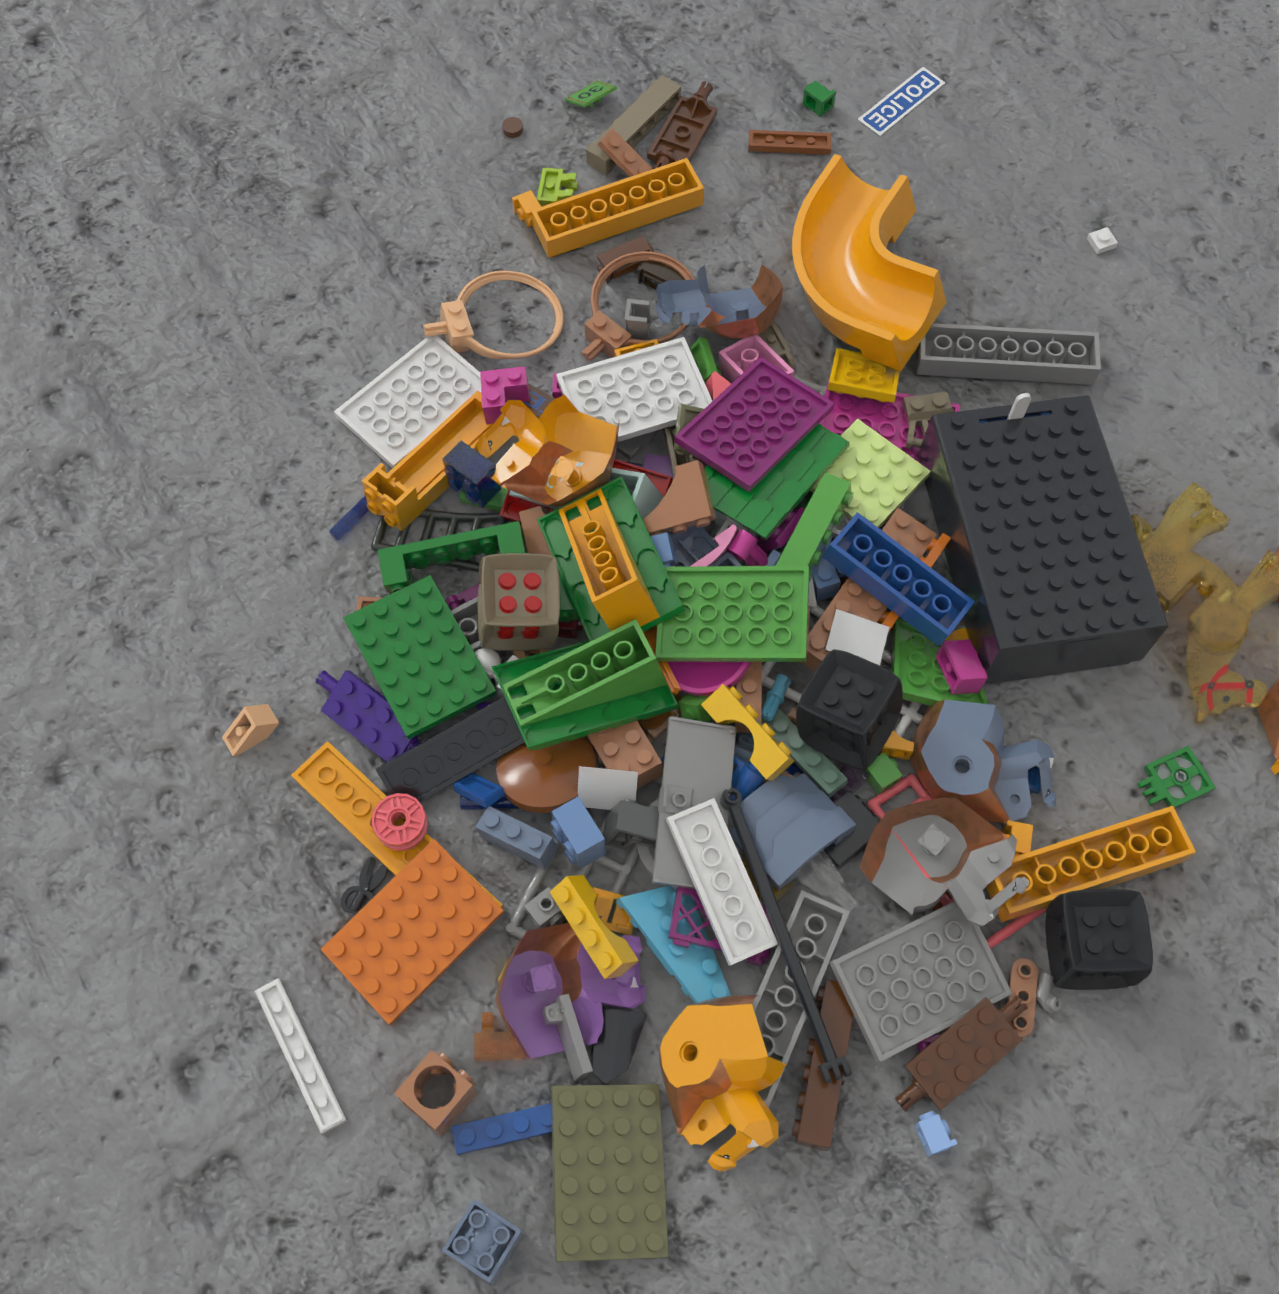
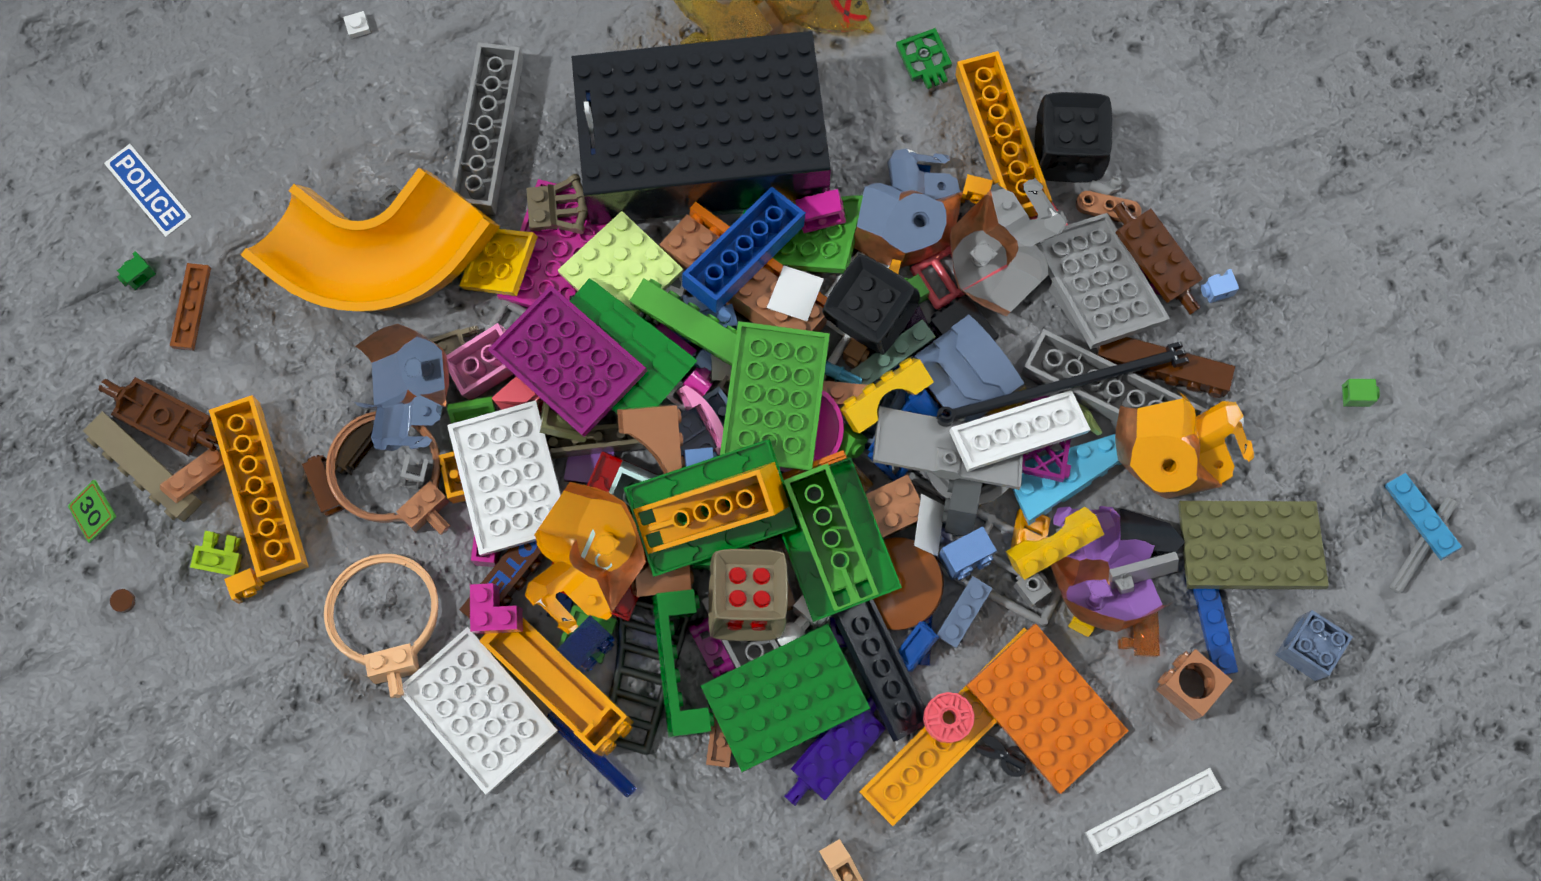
camera: 85 degrees left, 10 degrees up
(751, 974) = (1090, 420): none -> yellowish green piece

